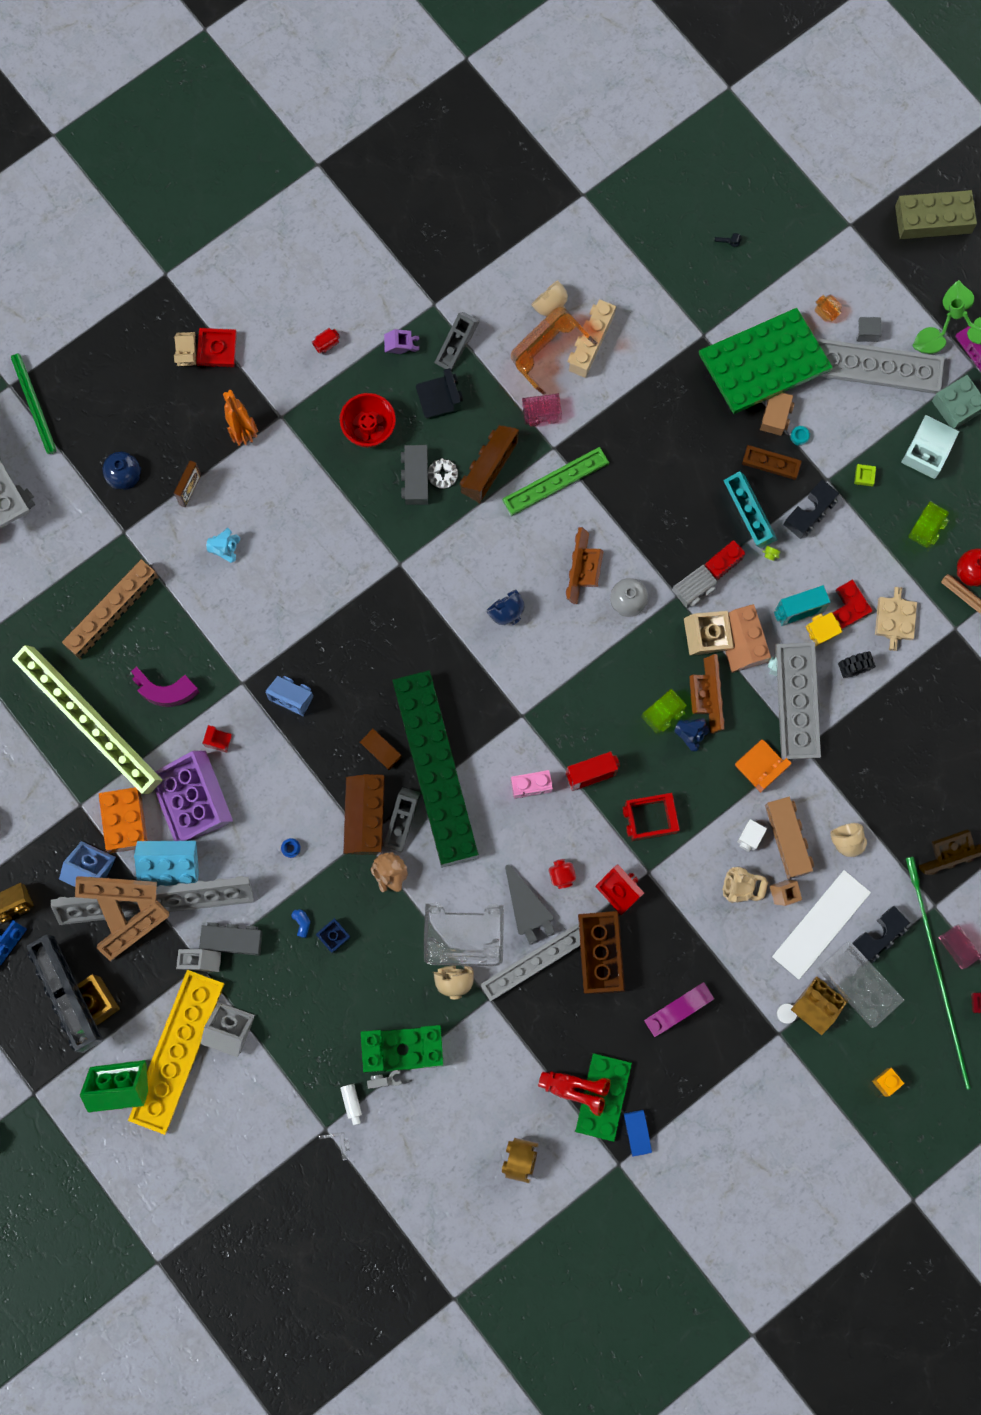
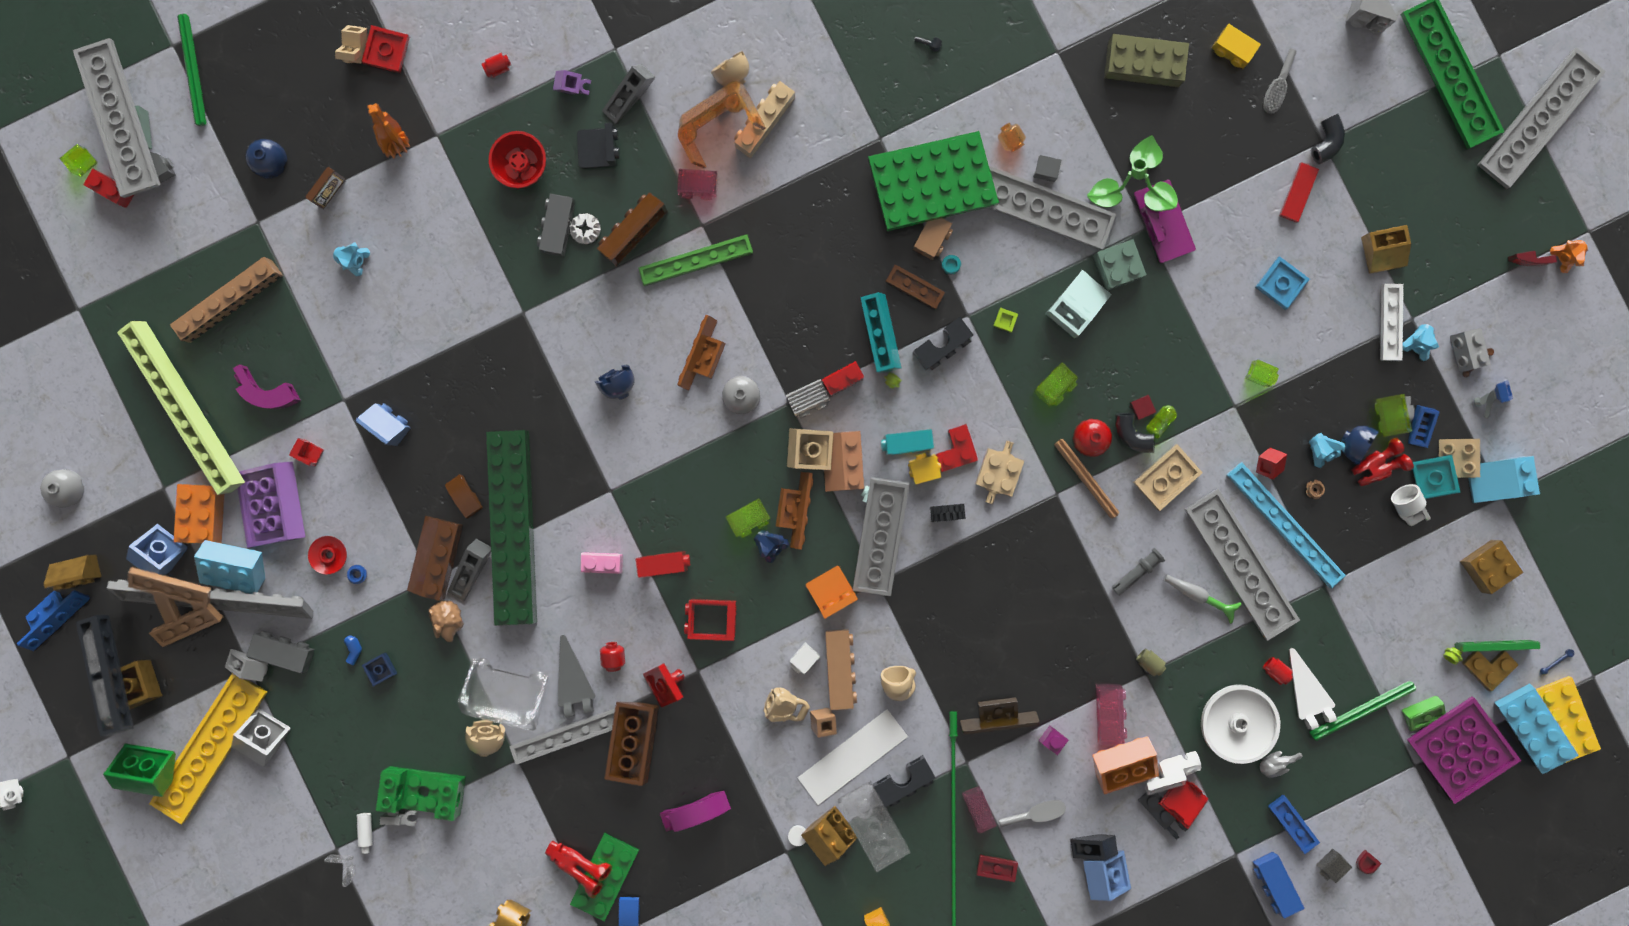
camera: 10 degrees right, 10 degrees up
(256, 824) = (318, 555): none -> red dish

